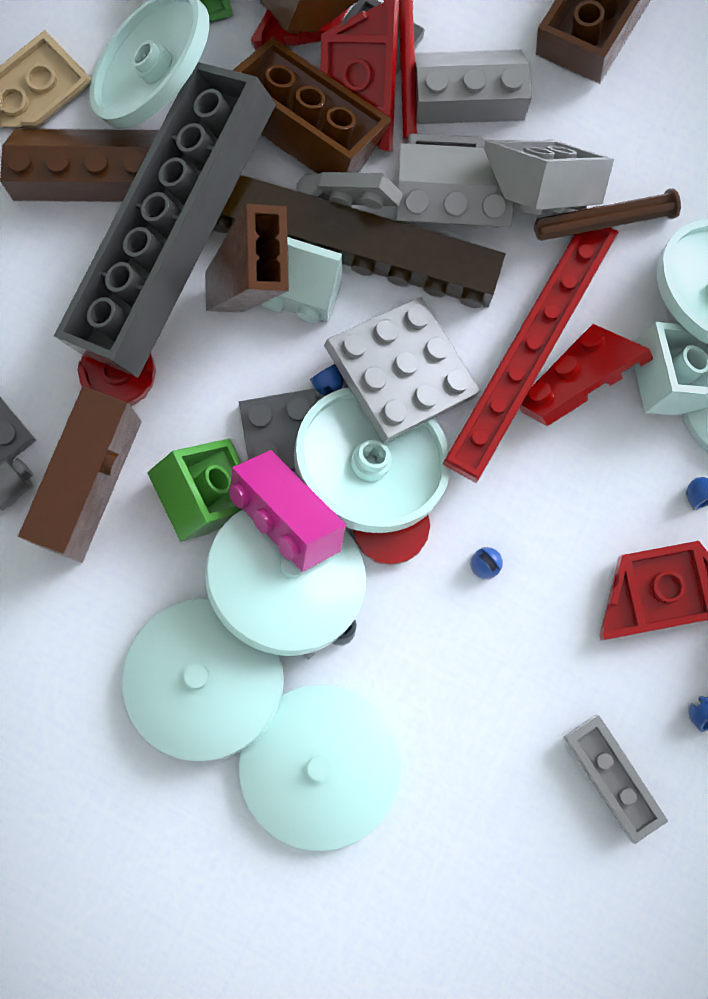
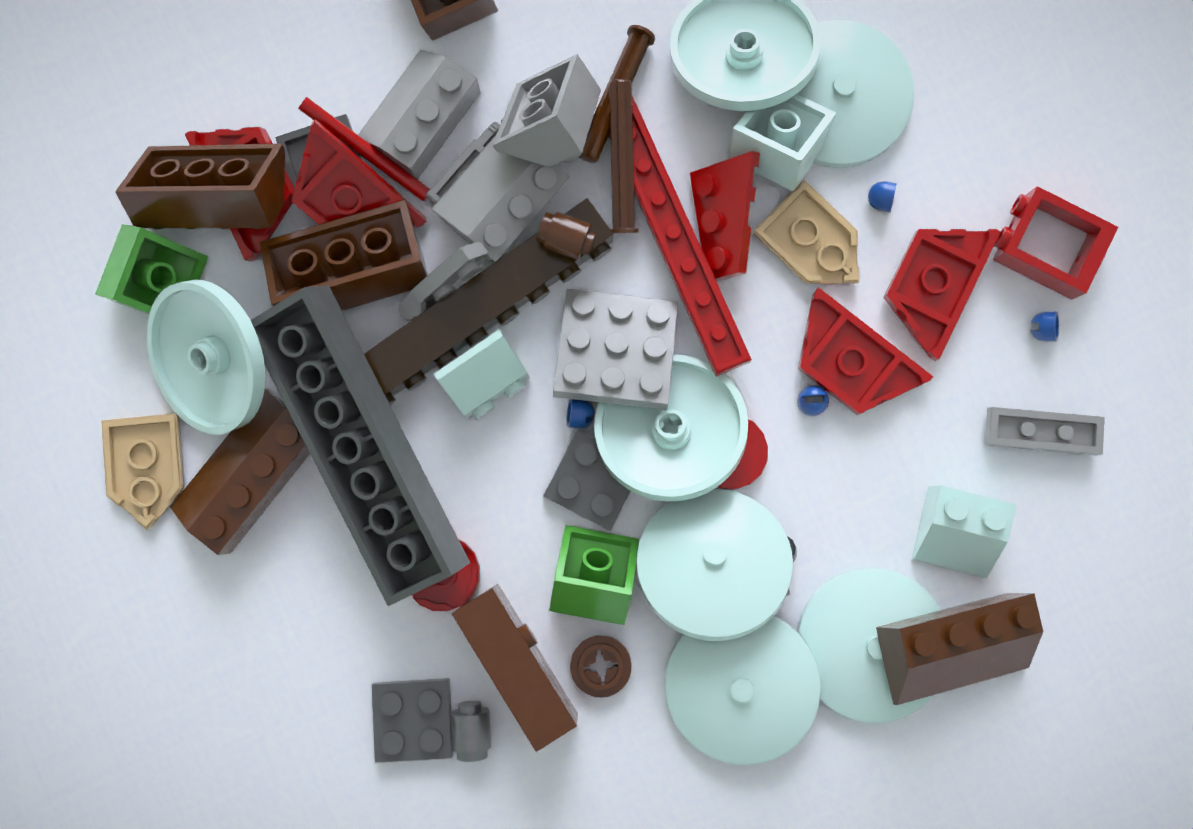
camera: 55 degrees left, 5 degrees up
(115, 552) = (616, 676): none -> reddish brown gear
(250, 261) = (454, 408): reddish brown slope -> none
(286, 510) = (667, 526): dark pink brick -> none
(373, 839) = (960, 645): none -> reddish brown slope
(460, 254) = (565, 235): none -> reddish brown brick
(474, 770) = (962, 530): none -> light aqua slope
(547, 570) = (853, 358): none -> red wing
(561, 256) = (622, 156): none -> reddish brown axle
(619, 461) = (812, 238): none -> tan tile

